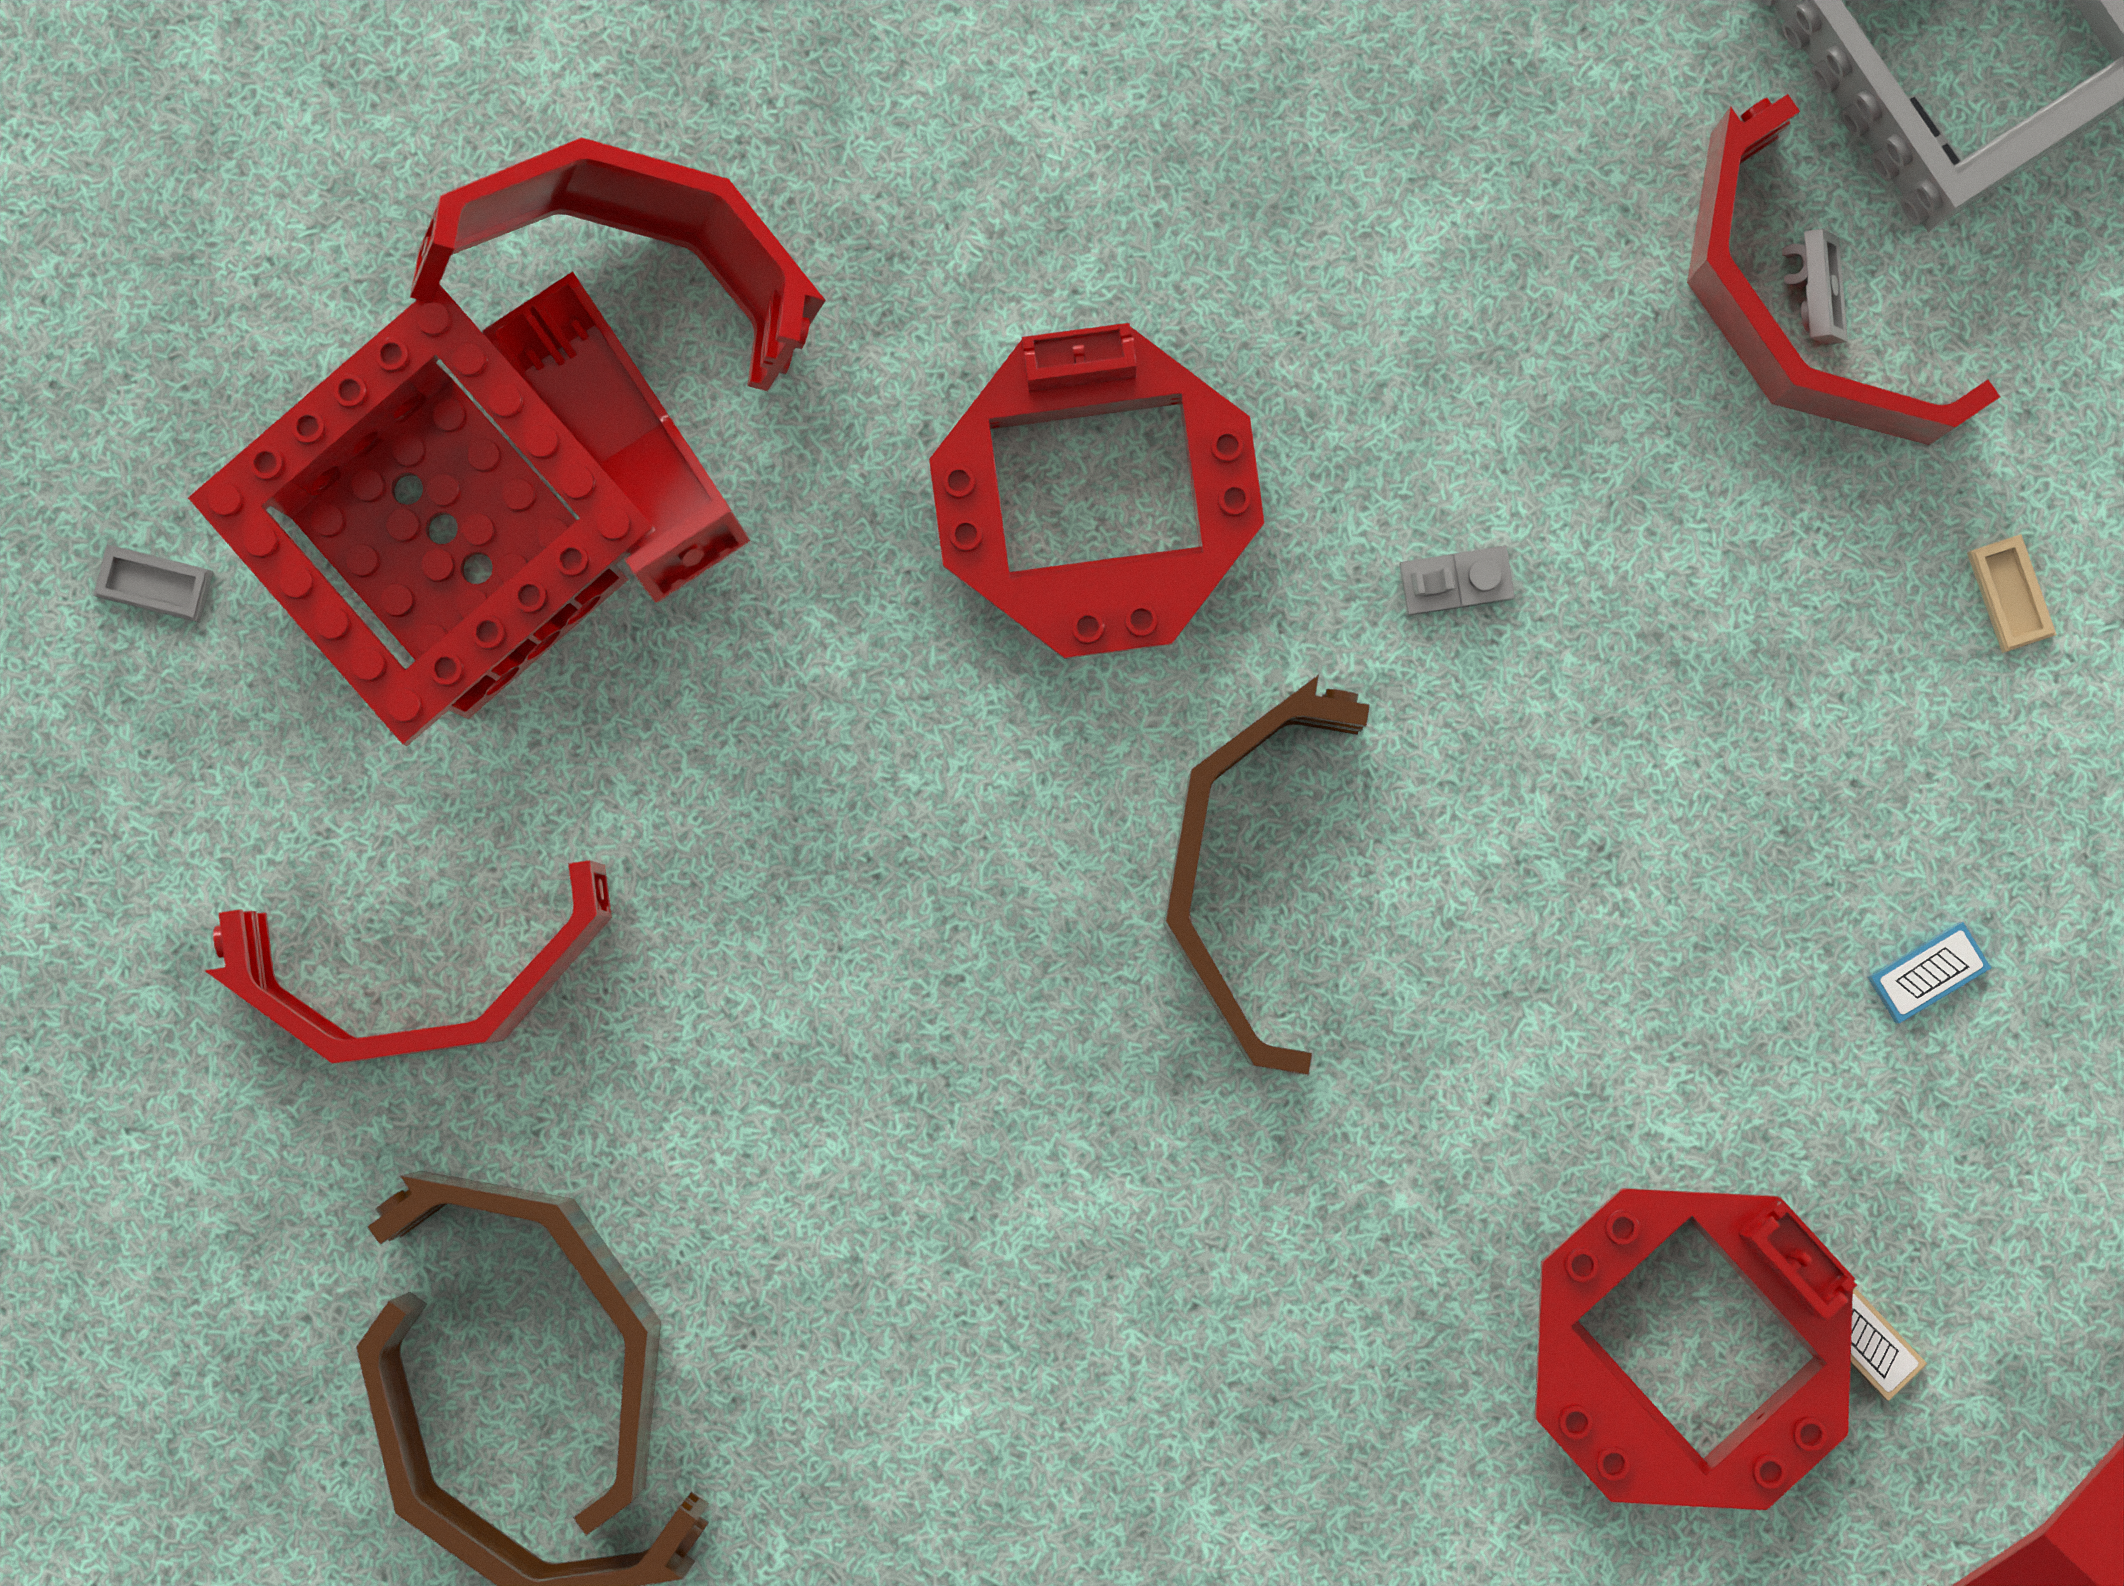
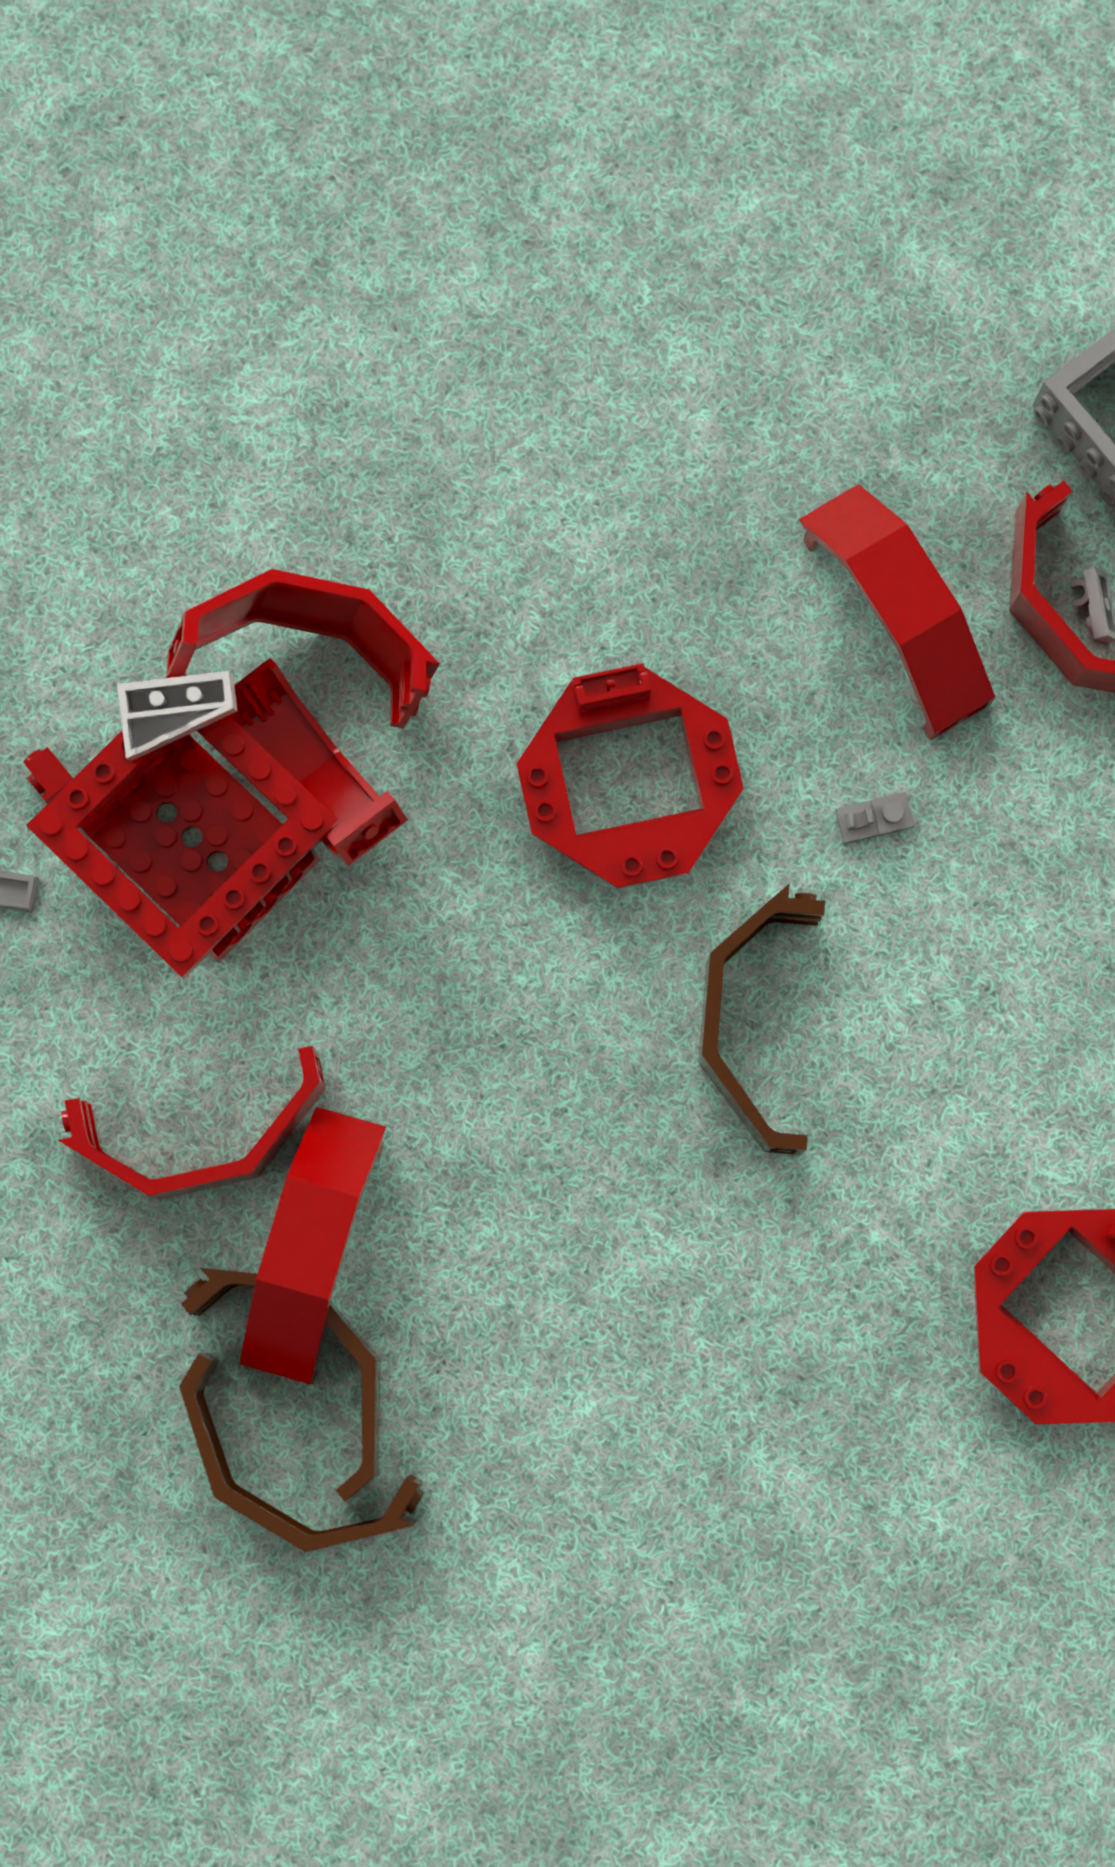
camera: 10 degrees left, 5 degrees down
(233, 416) = (47, 773): none -> red brick
(411, 341) = (172, 708): none -> white wedge
(564, 1148) = (308, 1244): none -> red panel
(1533, 260) = (909, 603): none -> red panel

